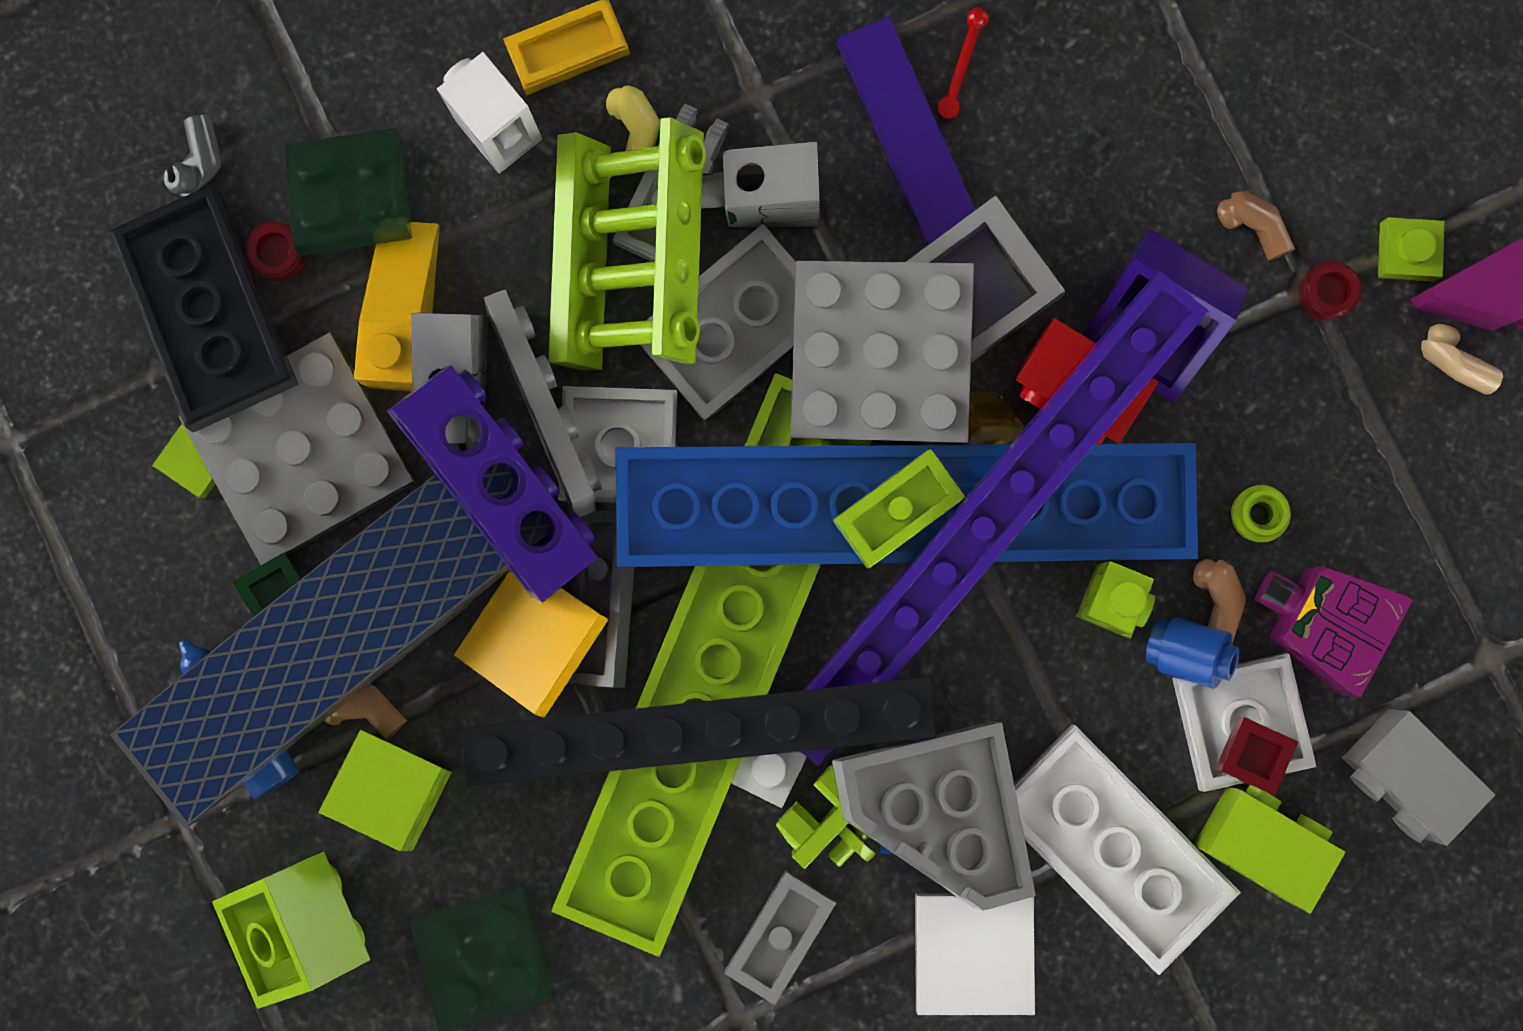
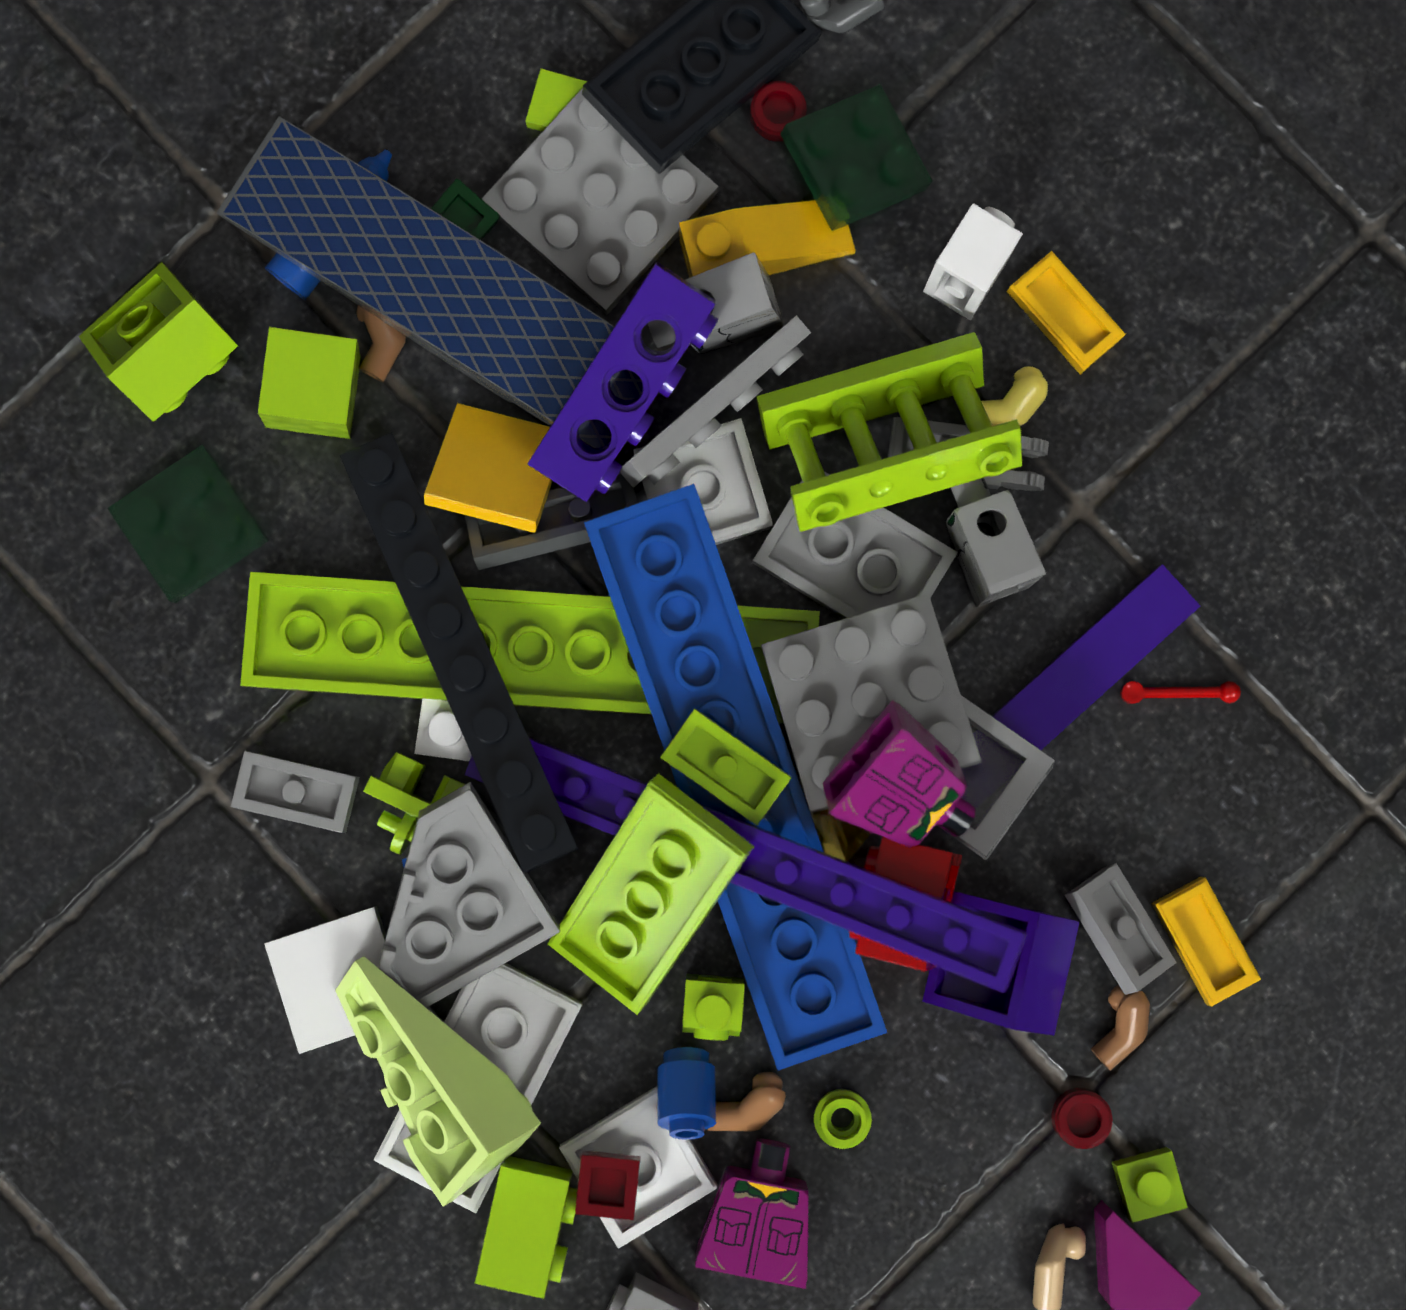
camera: 70 degrees right, 0 degrees up
(971, 346) = (899, 782): none -> magenta torso
(995, 621) = (649, 893): none -> lime tile
(1123, 880) = (452, 1097): none -> yellowish green wedge
(1167, 193) = (1120, 929): none -> light grey plate
(1202, 120) = (1206, 941): none -> yellow tile

